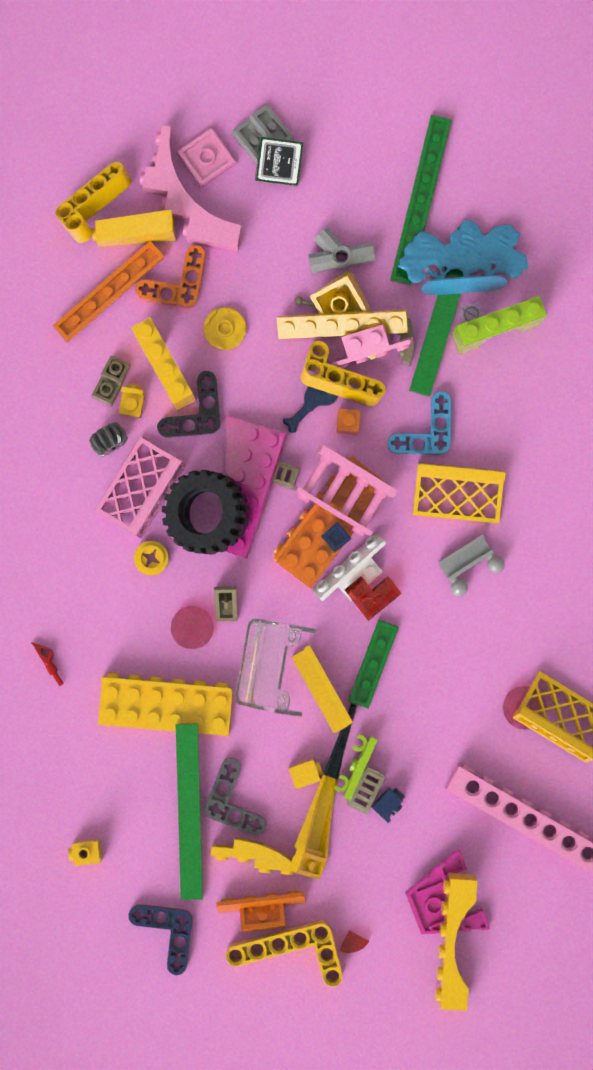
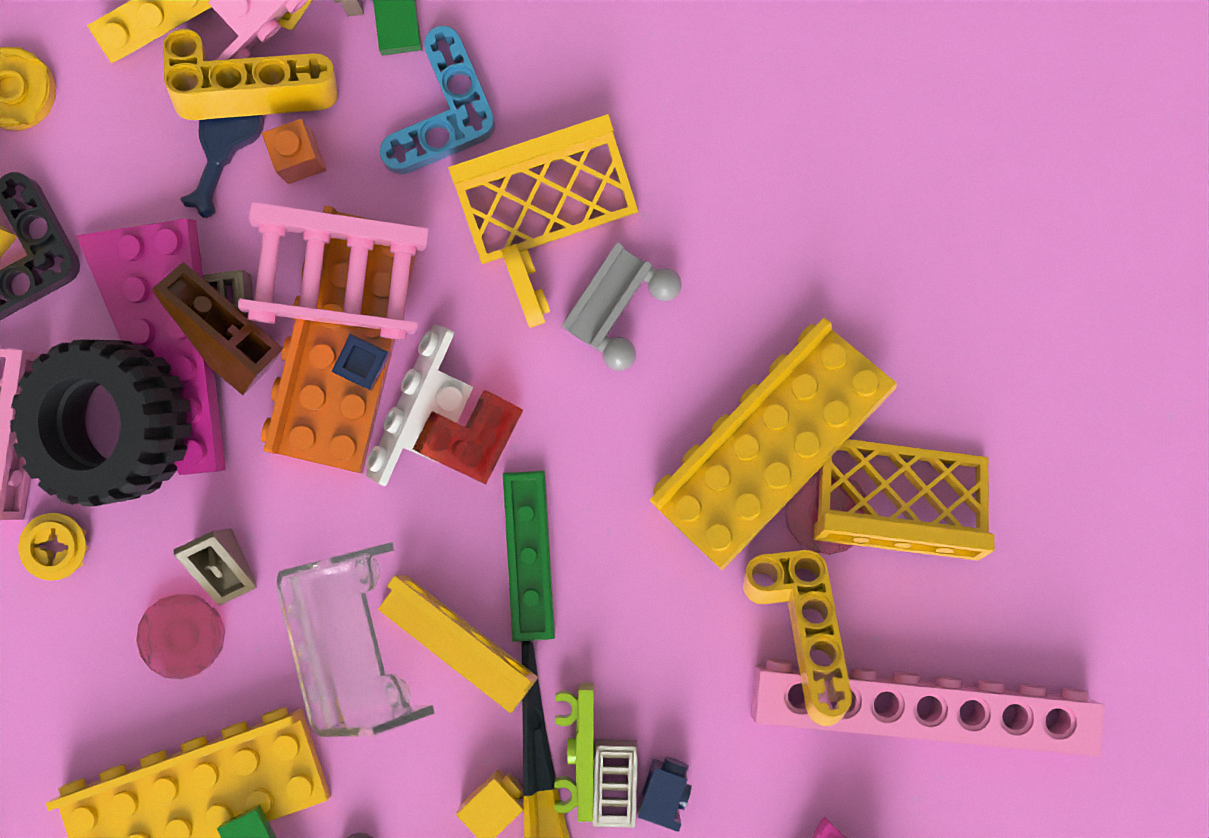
camera: 25 degrees left, 0 degrees up
(277, 493) = (217, 329): none -> reddish brown slope
(430, 525) = (519, 267): none -> yellow plate
(489, 760) = (807, 635): none -> yellow beam
(512, 662) = (771, 443): none -> yellow bracket

